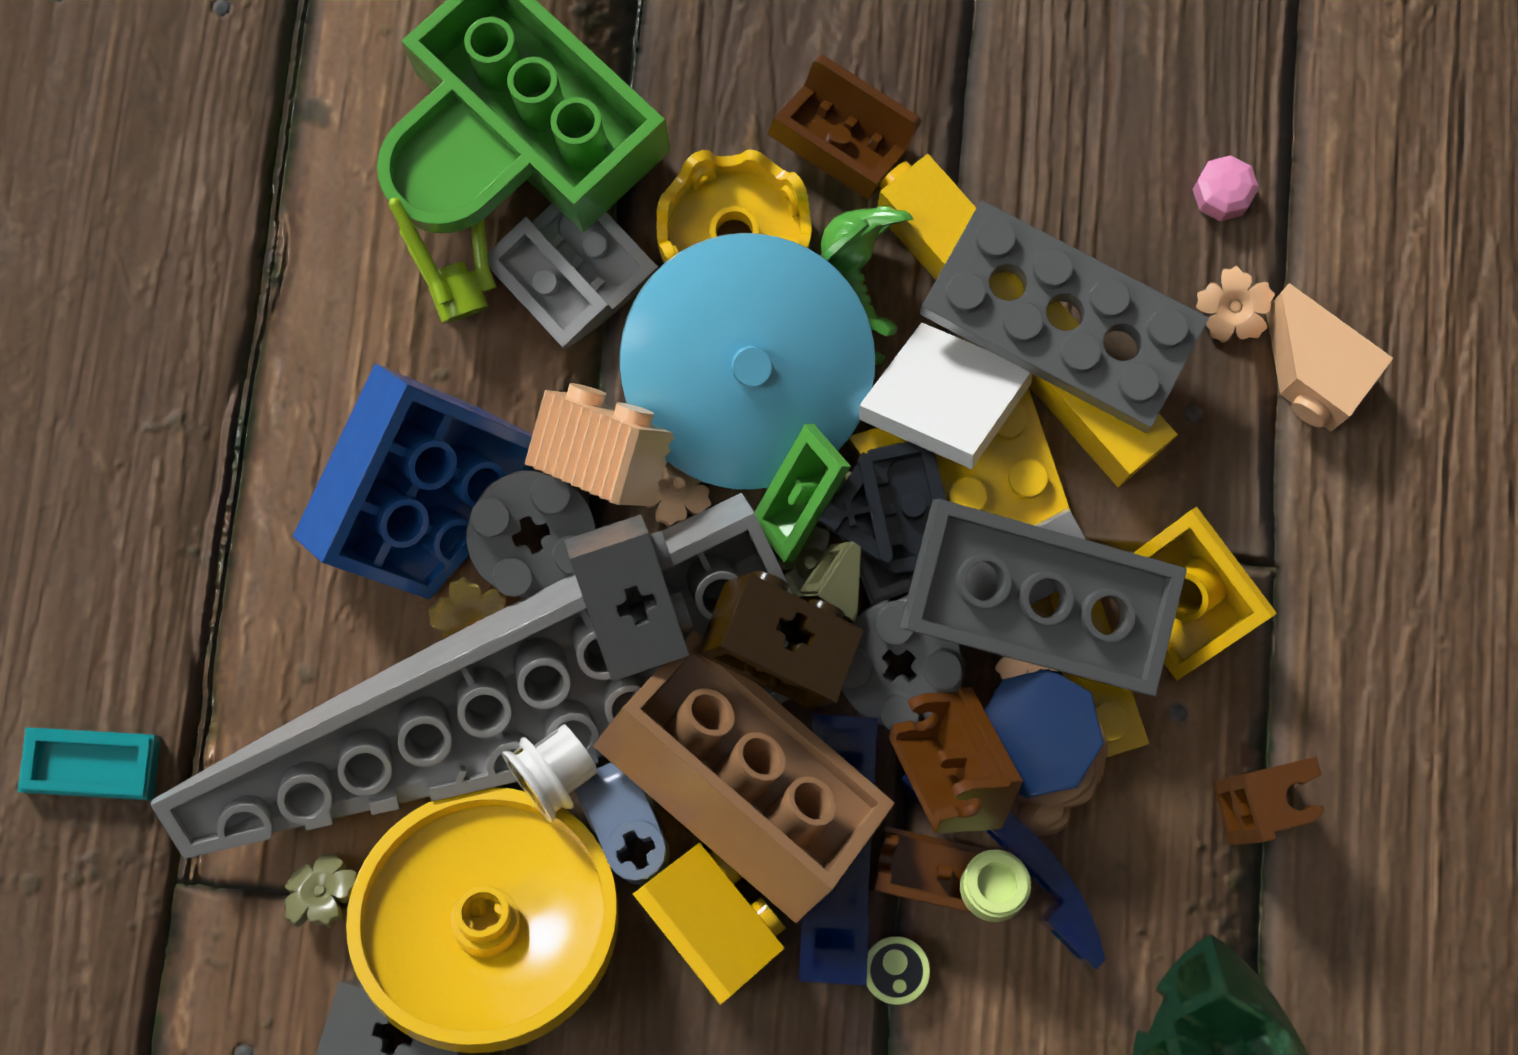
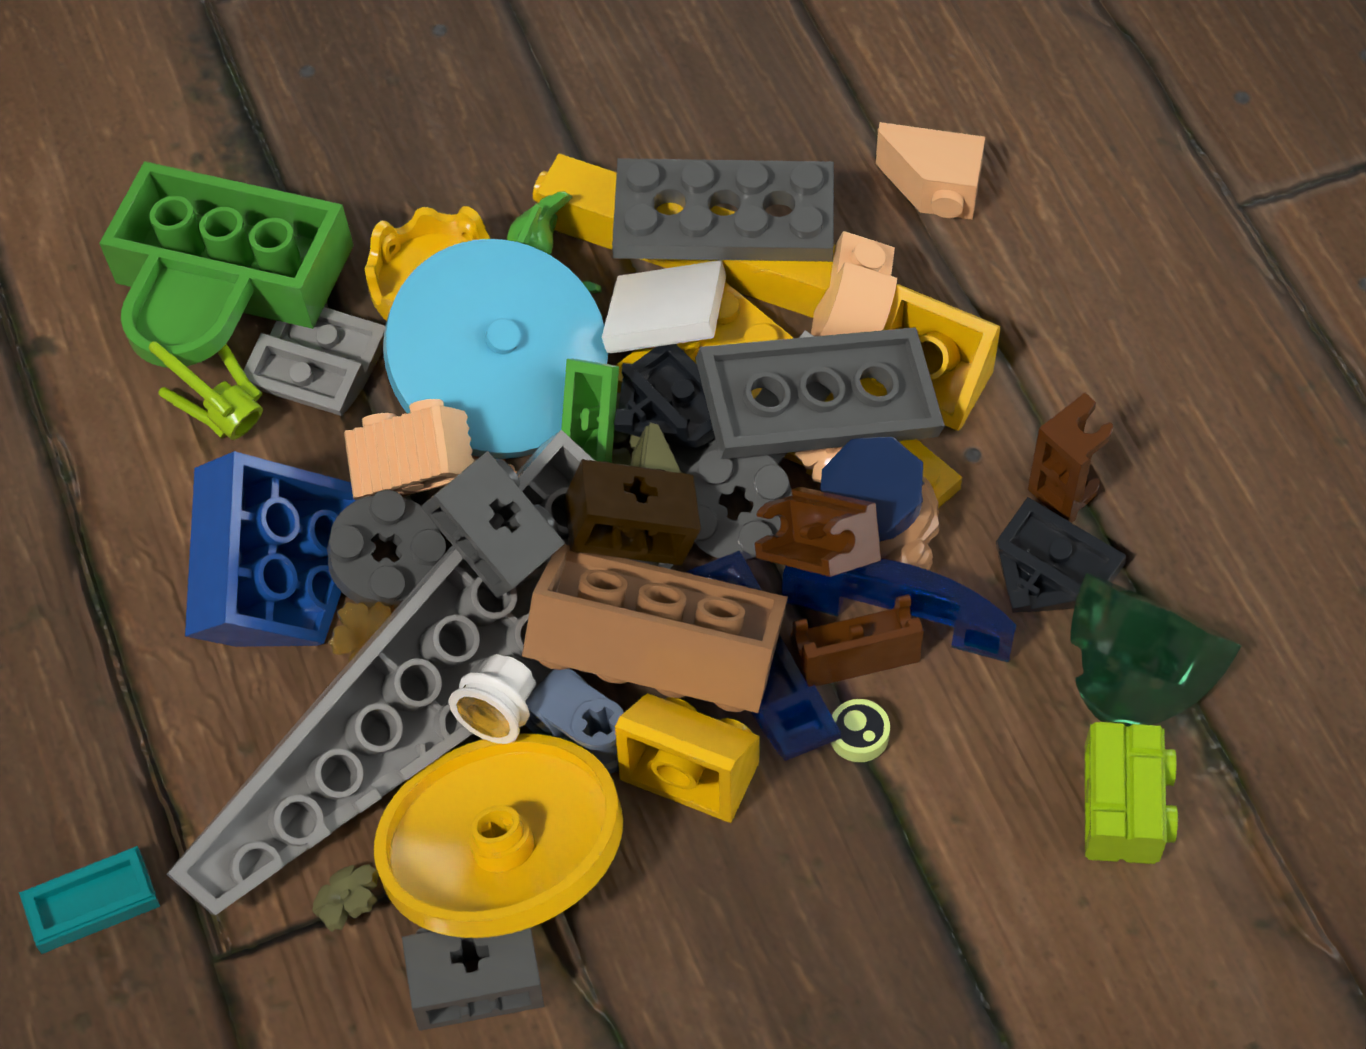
camera: 25 degrees left, 20 degrees down
(845, 127) = (484, 168): reddish brown bracket -> none
(995, 885) = (899, 607): yellowish green tile -> none
(1150, 496) = (858, 289): none -> light nougat brick
(1188, 883) = (1048, 559): none -> black slope
(1225, 188) = (797, 95): bright pink tile -> none
(1235, 305) = (853, 162): light nougat plant -> none

